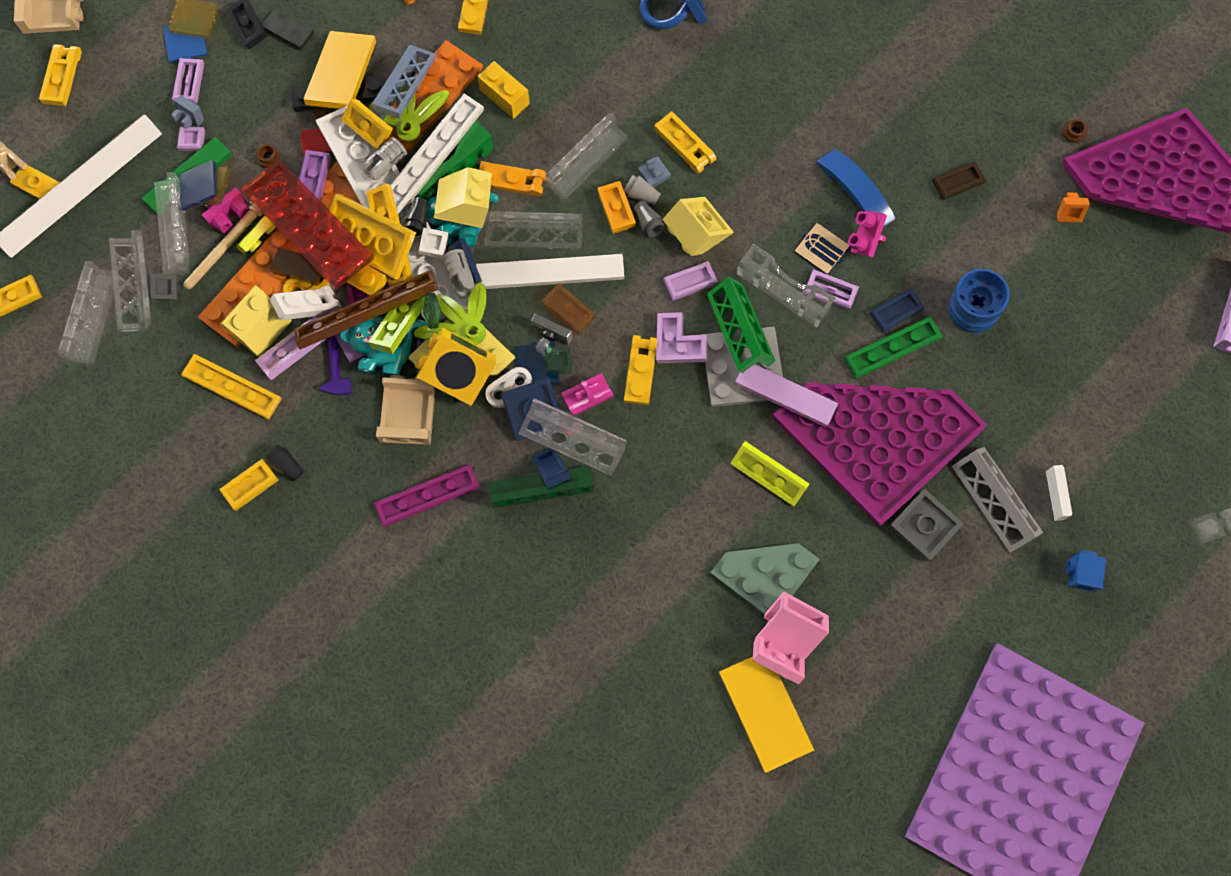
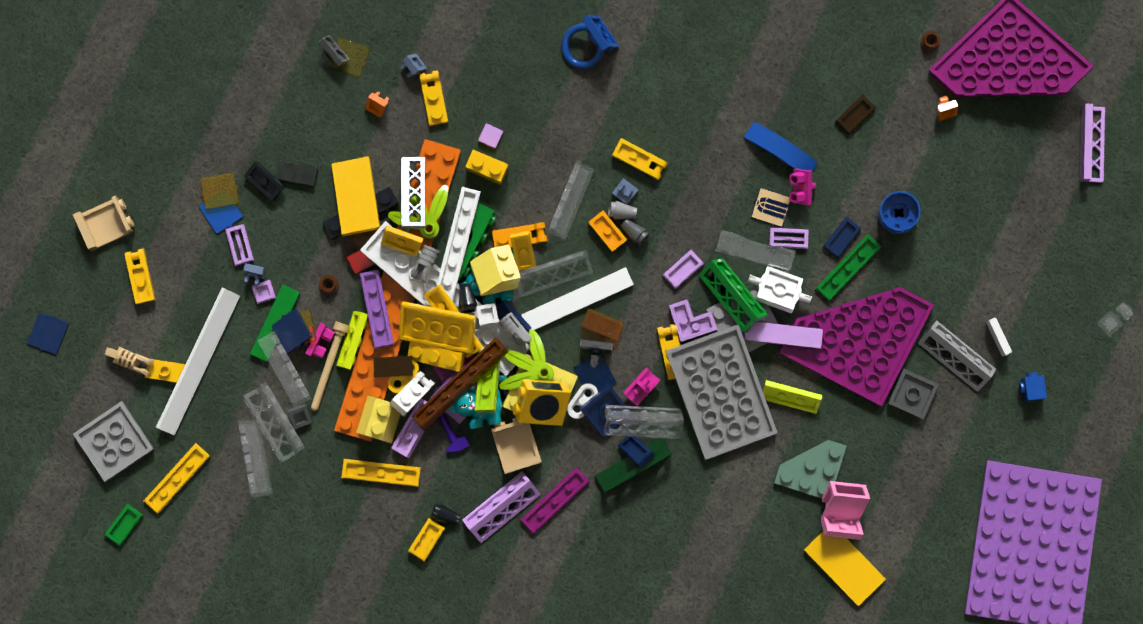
camera: 20 degrees left, 10 degrees up
(307, 224) = (390, 334): clear red plate -> none
(351, 473) = (499, 504): none -> lavender fence
(431, 310) = (509, 368): clear green tile -> none
(507, 189) = (523, 250): none -> yellow plate
(522, 63) = (490, 136): none -> lavender tile
(558, 360) = (609, 367): clear green tile -> none
(684, 435) = (721, 392): none -> light grey plate
(696, 225) = (673, 224): light yellow slope -> none
(799, 340) = (779, 289): none -> white plate

